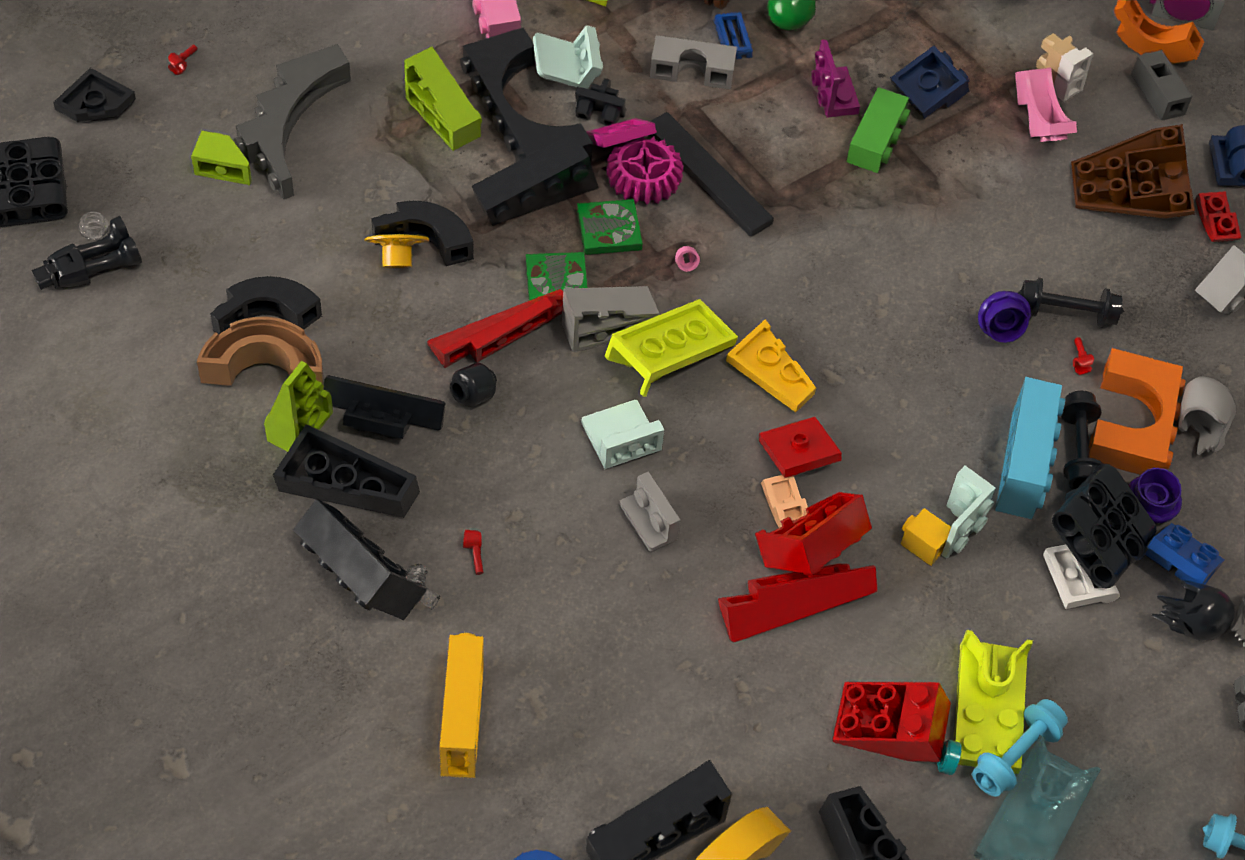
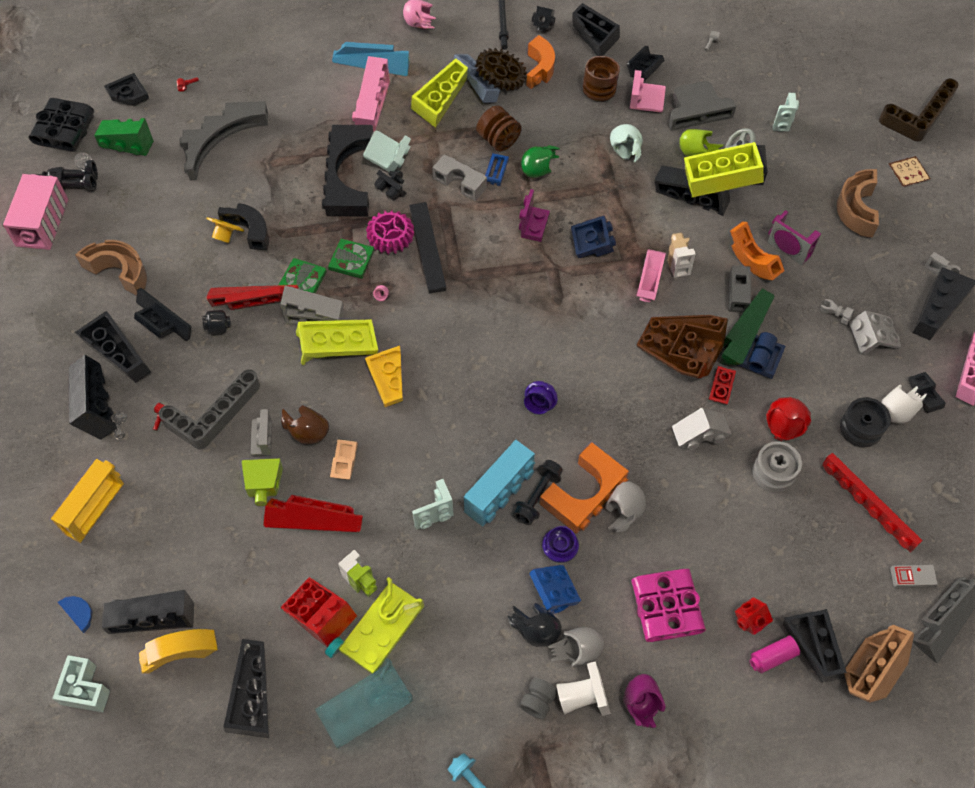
camera: 30 degrees right, 5 degrees up
(80, 323) = (36, 211): none -> bright pink brick
(142, 166) = (125, 136): none -> green wedge
(220, 159) = (167, 145): lime slope -> none
(267, 297) = (138, 231): black arch -> none
(297, 404) = (110, 298): lime wedge -> none
(440, 99) = (301, 152): lime wedge -> none
(537, 181) = (324, 217): black wedge -> none
(564, 513) = (213, 413): none -> dark grey beam
(621, 132) = (387, 205): dark pink tile -> none
(623, 433) = (277, 381): light aqua bracket -> none
(691, 575) = (262, 478): none -> lime torso
(715, 482) = (309, 428): none -> reddish brown helmet
(800, 447) = (370, 428): red plate -> none
(817, 536) = (343, 485): red wedge -> none
(879, 130) = (542, 255): bright green brick -> none
(922, 645) = (357, 576): none -> lime hips
(925, 536) = (404, 508): yellow brick -> none
(995, 773) = (348, 669): medium azure piece -> none
(1073, 582) = (479, 572): white plate -> none
(1082, 363) = (575, 444): red hand -> none
(1104, 525) = (493, 539): black connector -> none
(1108, 308) = (608, 417): black piece -> none
(1206, 135) = (745, 330): none -> dark green wedge

